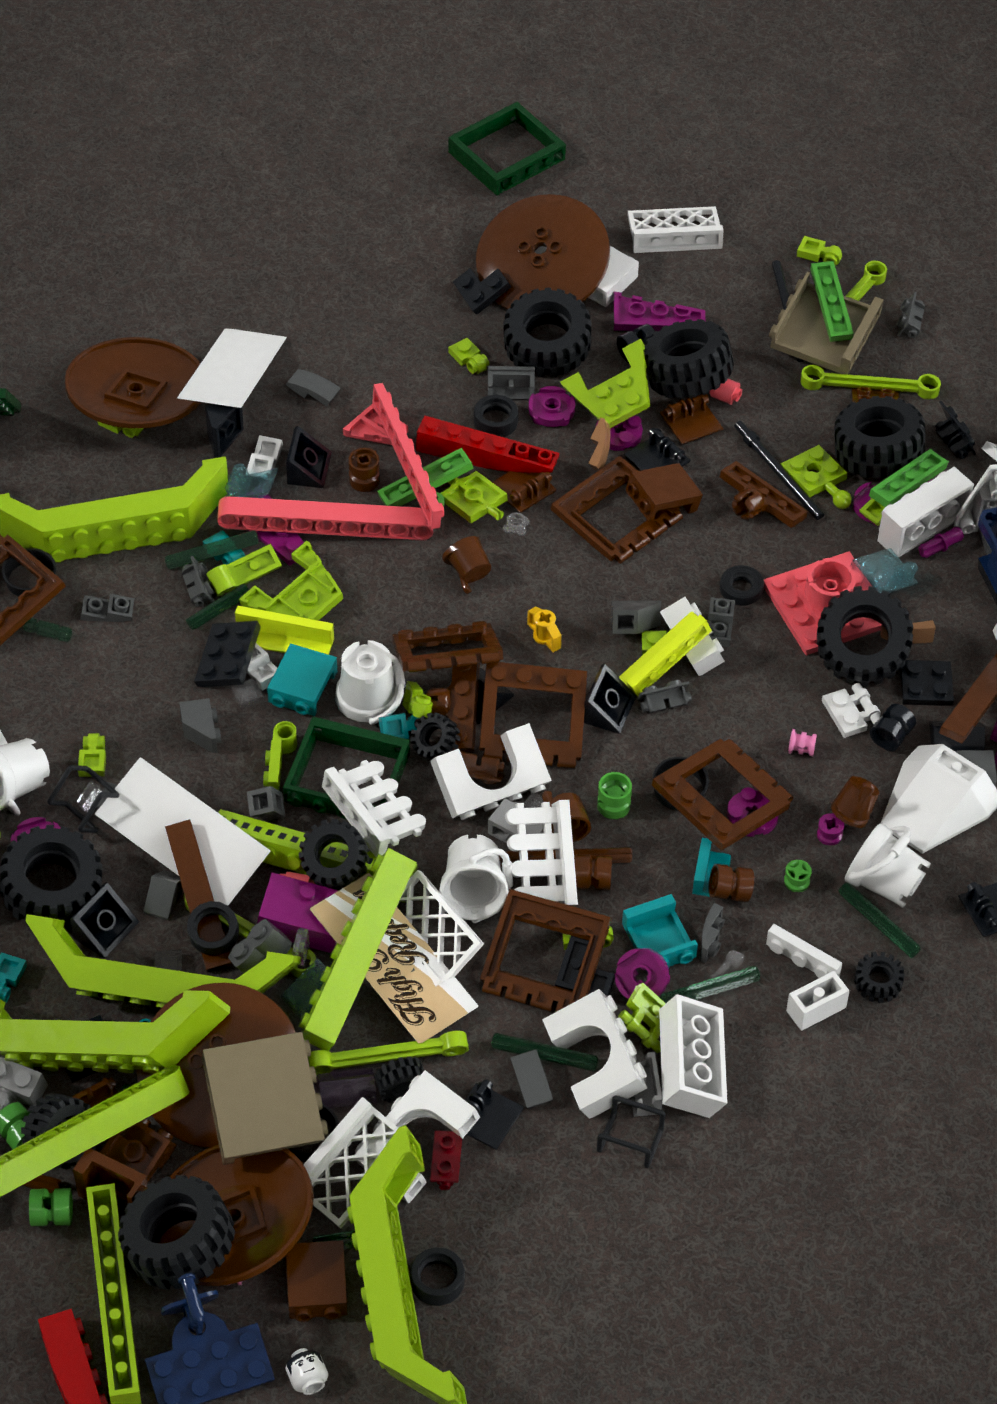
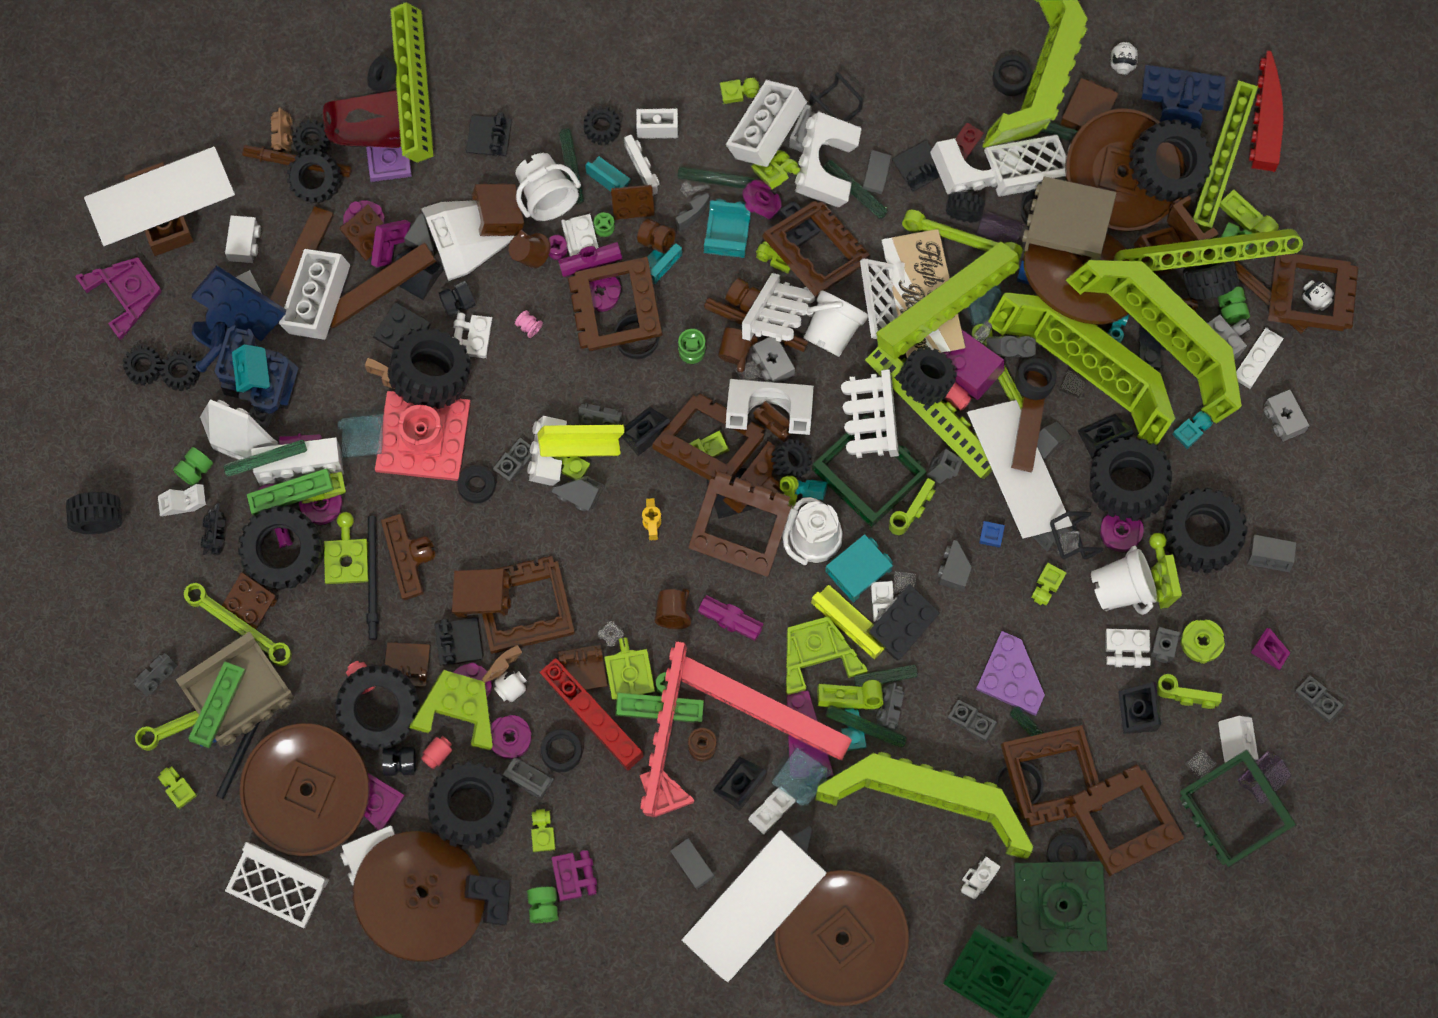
camera: 150 degrees left, 20 degrees up
(28, 488) = (980, 878): none -> white piece
(47, 1247) = (1246, 214): none -> lime plate
(87, 663) = (1011, 675): none -> medium lavender plate
(180, 772) = (991, 534): none -> blue plate
(406, 583) = (730, 617): none -> magenta piece
(421, 332) = (566, 875): none -> magenta plate
(429, 301) = (542, 904): none -> bright green wheel
(537, 714) = (712, 445): none -> lime slope
(578, 441) = (510, 685): none -> white head
(609, 364) = (436, 752): none -> coral brick
(703, 283) = (274, 794): none -> reddish brown dish
(758, 1092) = (733, 91): none -> lime plate
(775, 835) = (590, 258): none -> magenta piece
(782, 907) = (632, 202): none -> reddish brown hinge
(817, 853) = (579, 233): none -> white plate
(833, 925) = (606, 174): none -> teal panel
(928, 821) = (498, 209): none -> reddish brown panel
(953, 476) = (265, 458): none -> clear green axle

